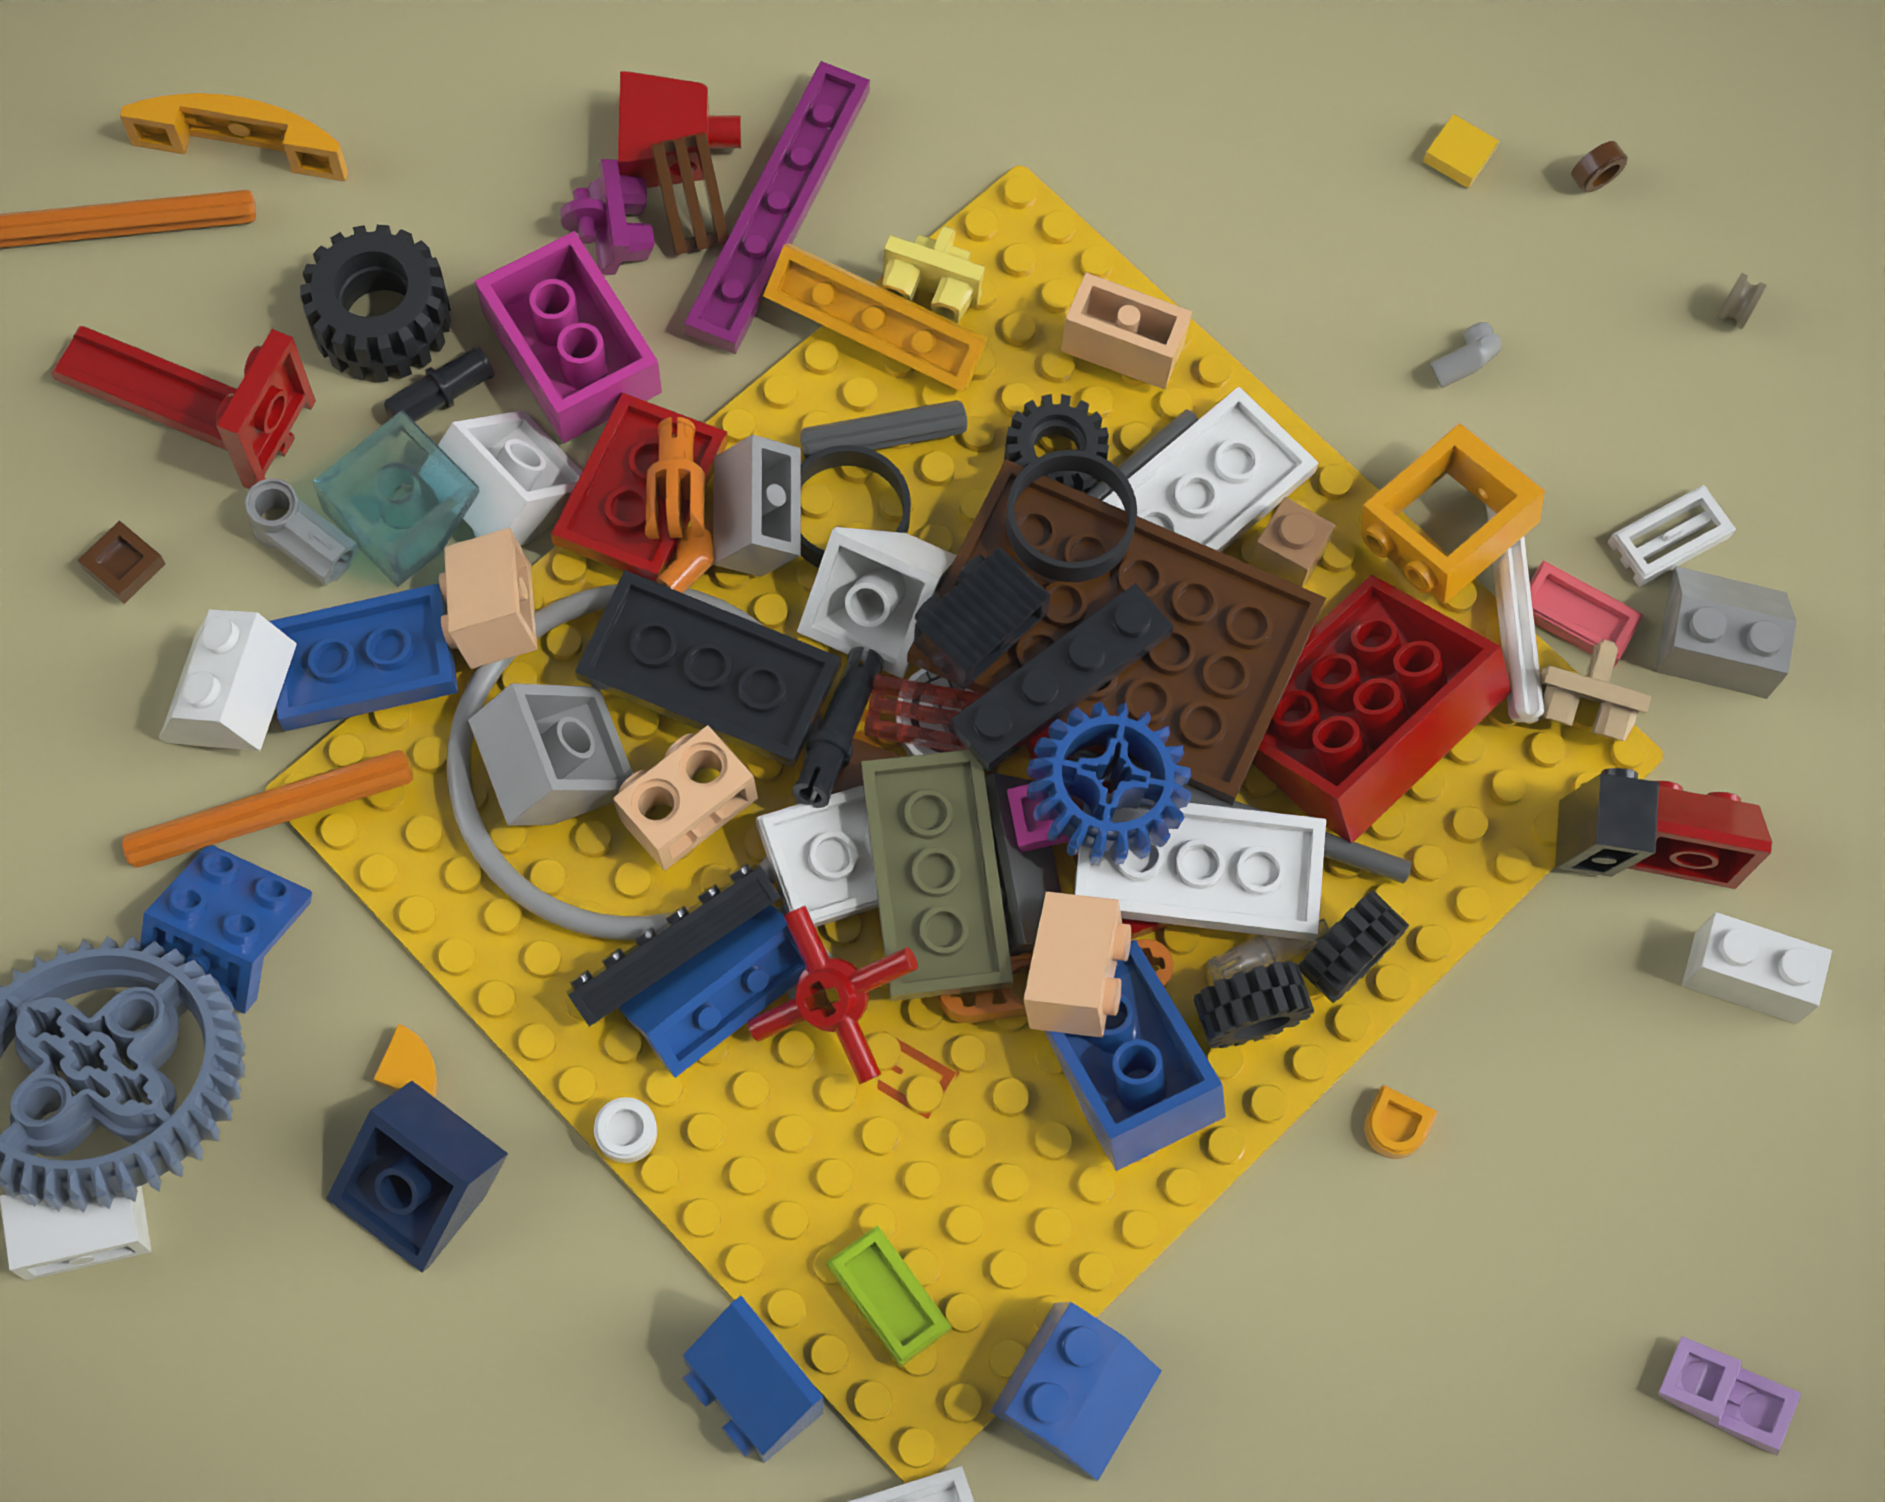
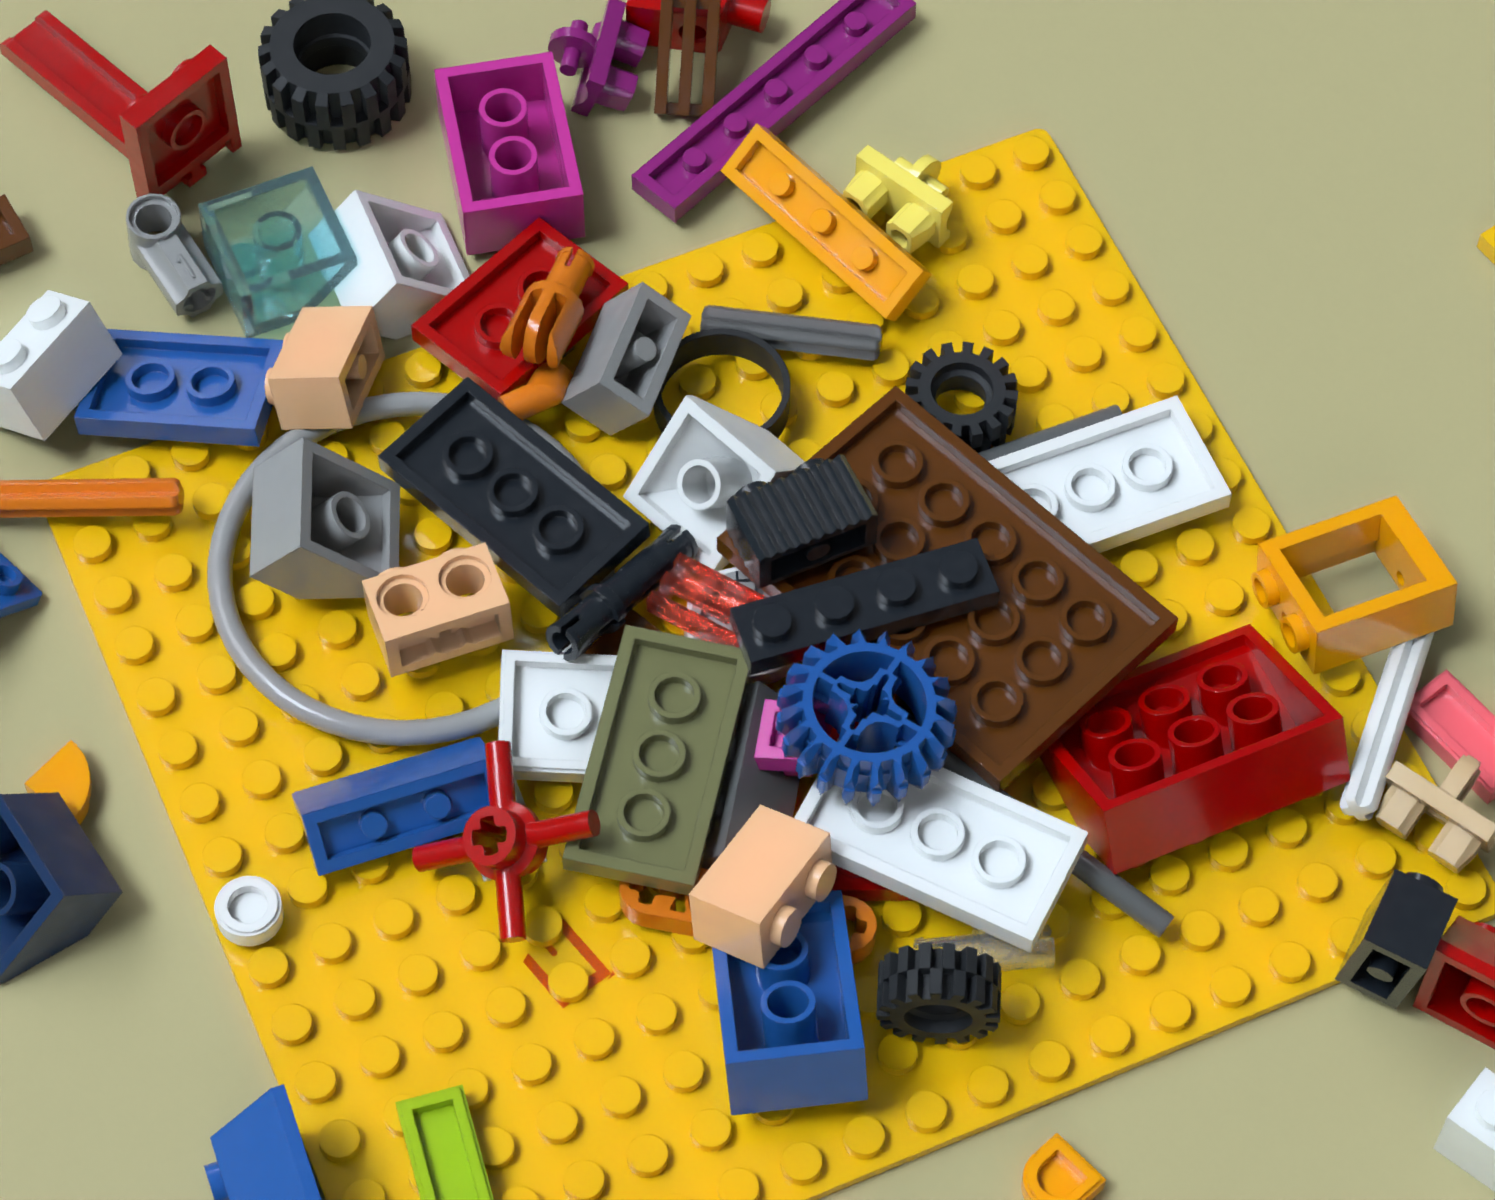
camera: 25 degrees right, 10 degrees down
(441, 385) = (370, 166): black axle -> none
(673, 944) = (367, 745): black piece -> none
(1080, 462) = (937, 400): black tyre -> none
(1125, 330) = (1076, 305): light nougat brick -> none
(1292, 543) = (1171, 561): medium nougat brick -> none
(1353, 946) = (1069, 971): black tyre -> none
(1480, 349) = (1463, 442): light grey arm -> none

